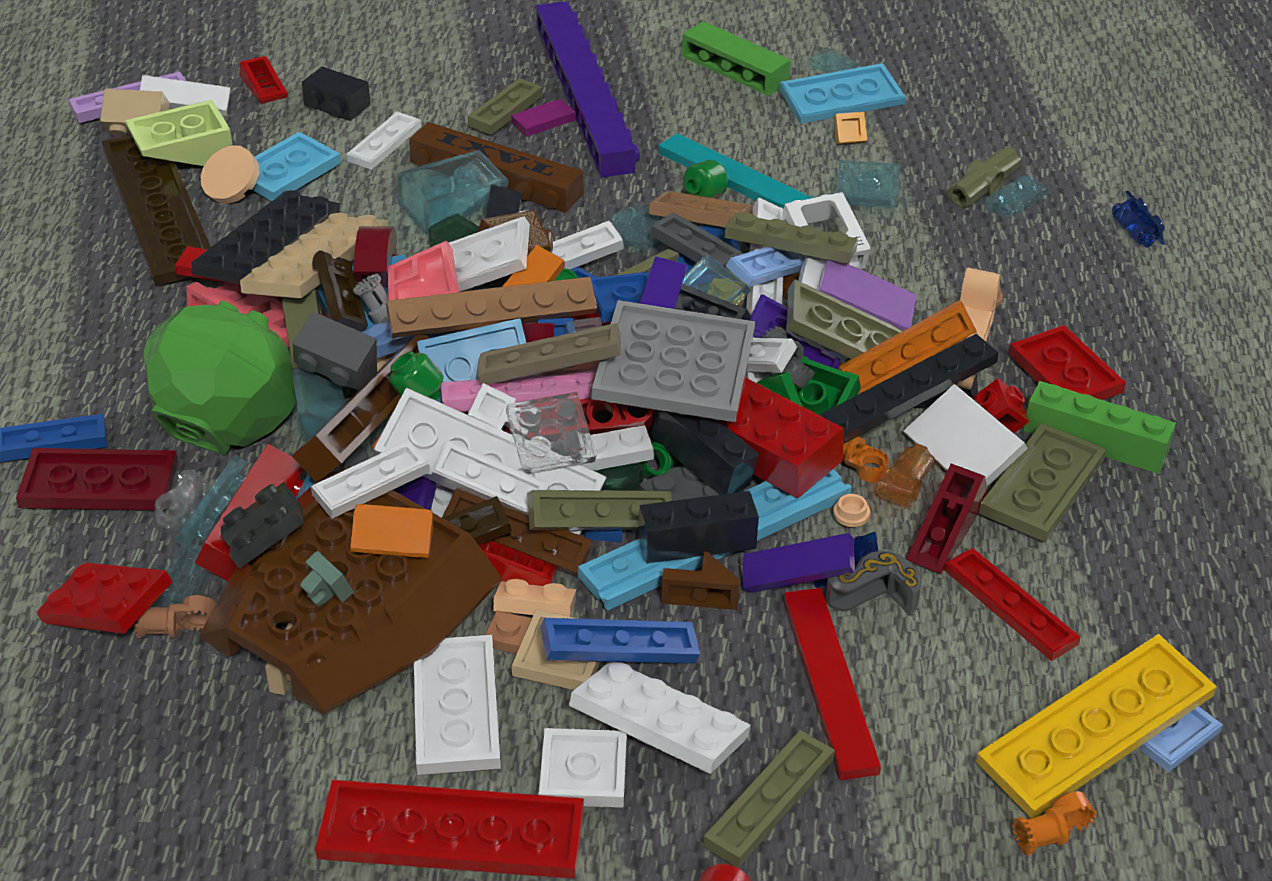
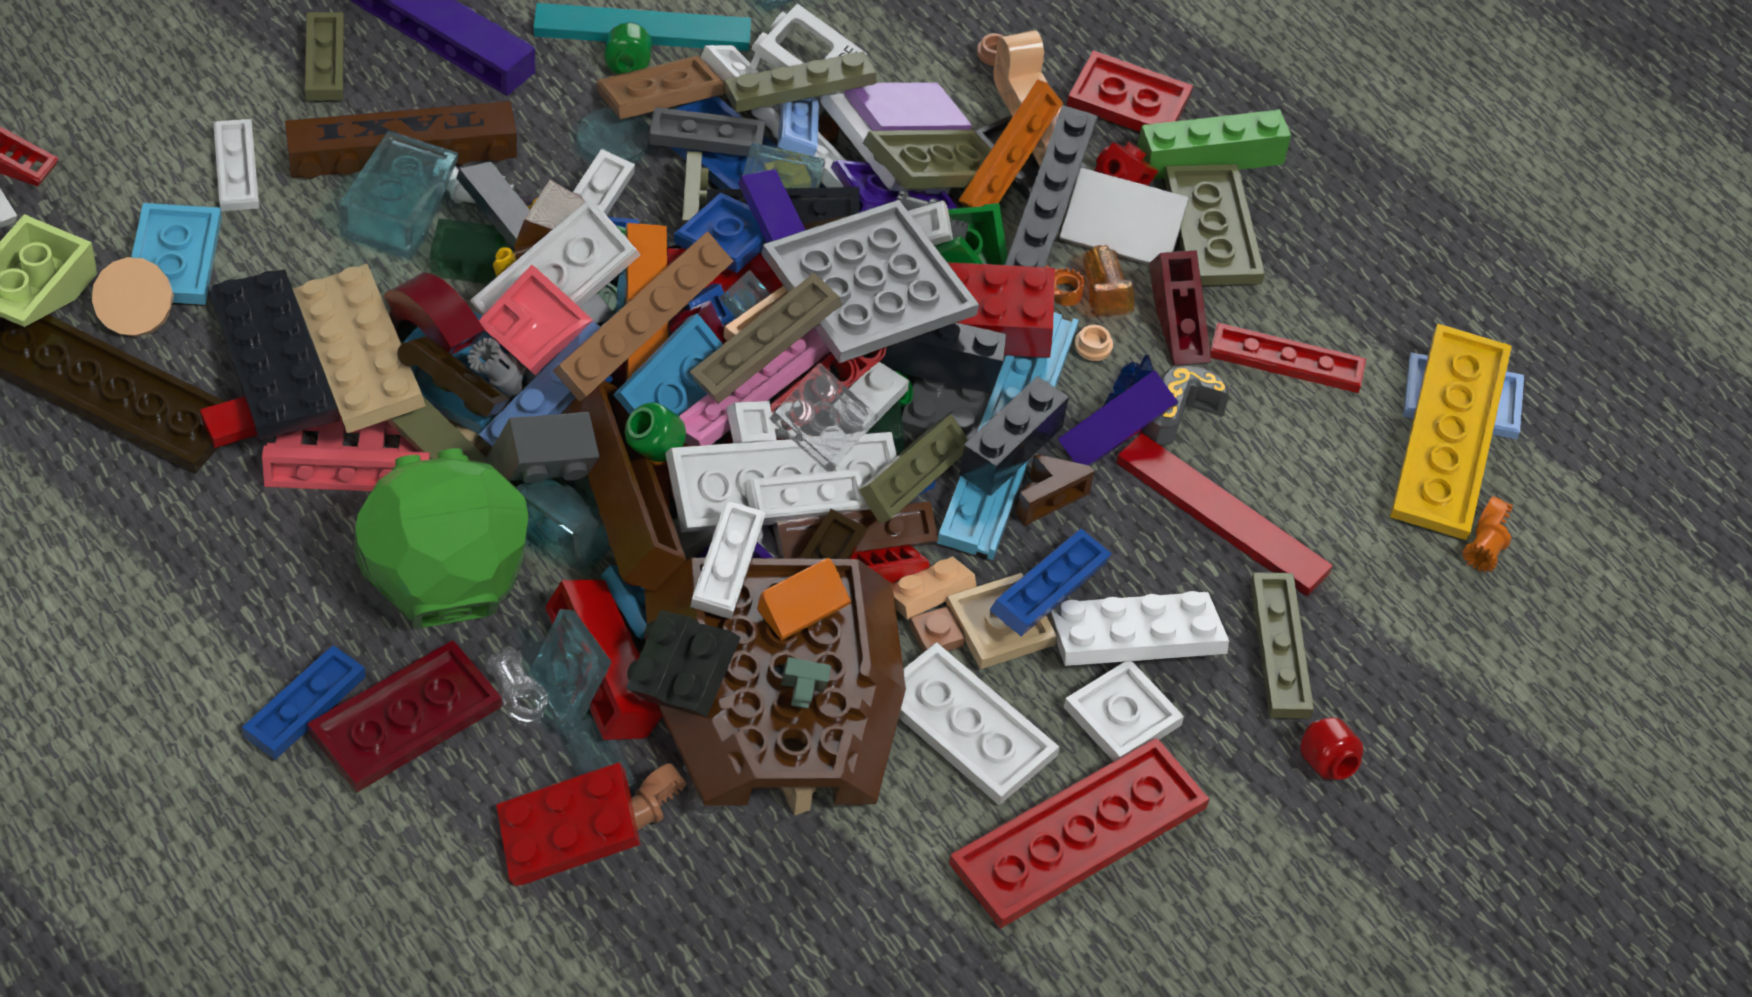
camera: 45 degrees left, 10 degrees up
(336, 93) = (124, 132): black brick -> none
(543, 117) = (375, 50): magenta tile -> none

